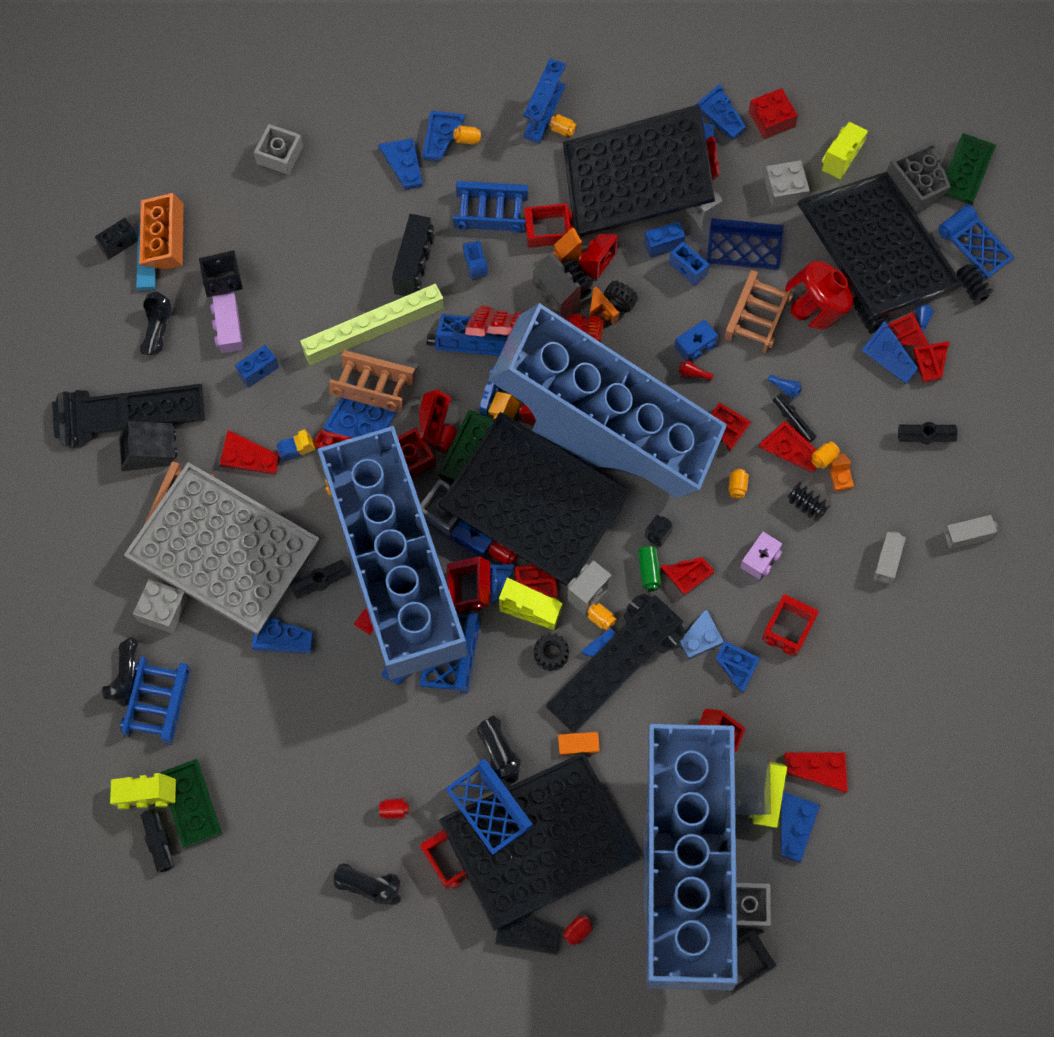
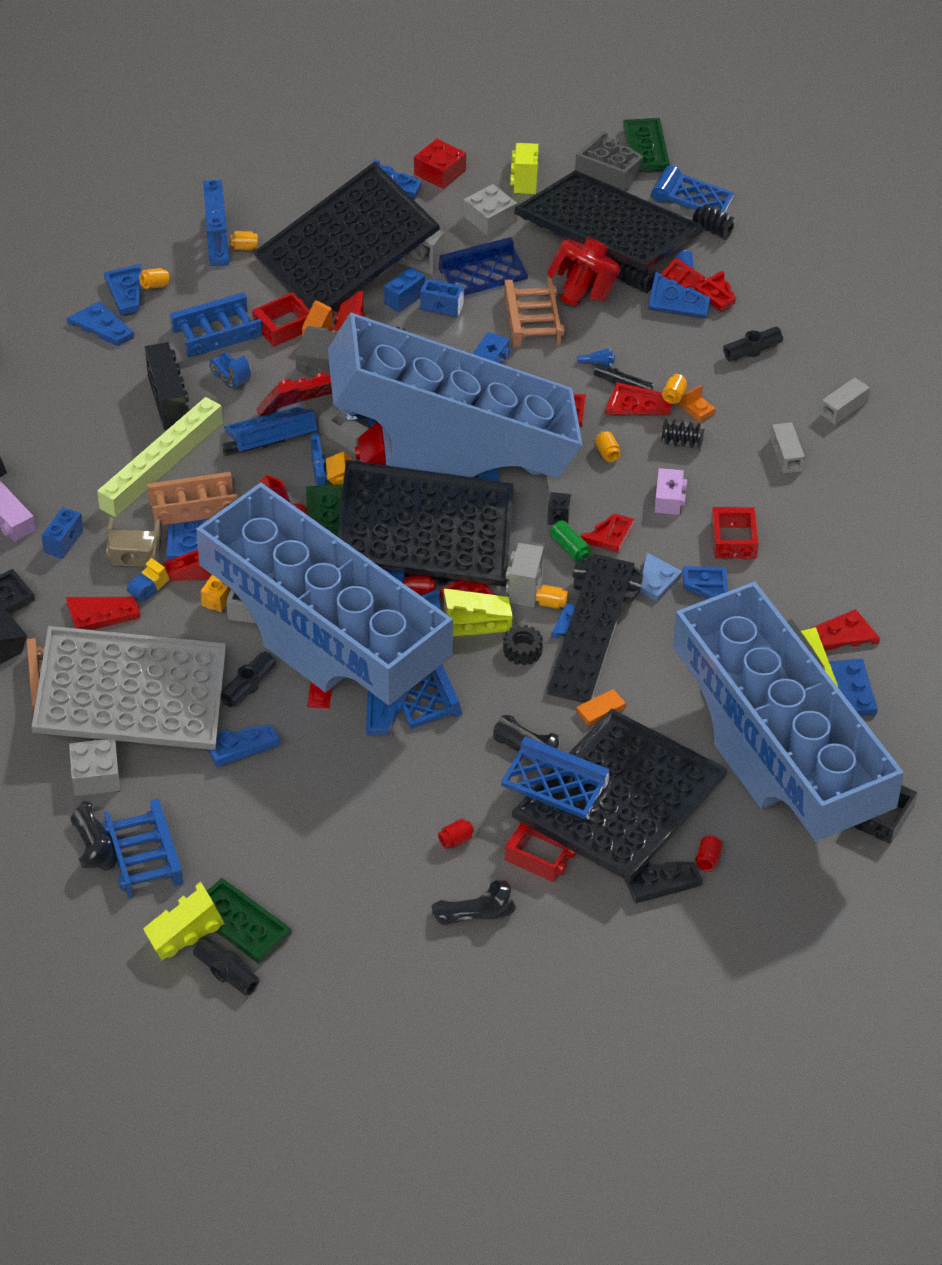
camera: 30 degrees left, 20 degrees down
(304, 403) = (132, 547): none -> dark tan piece

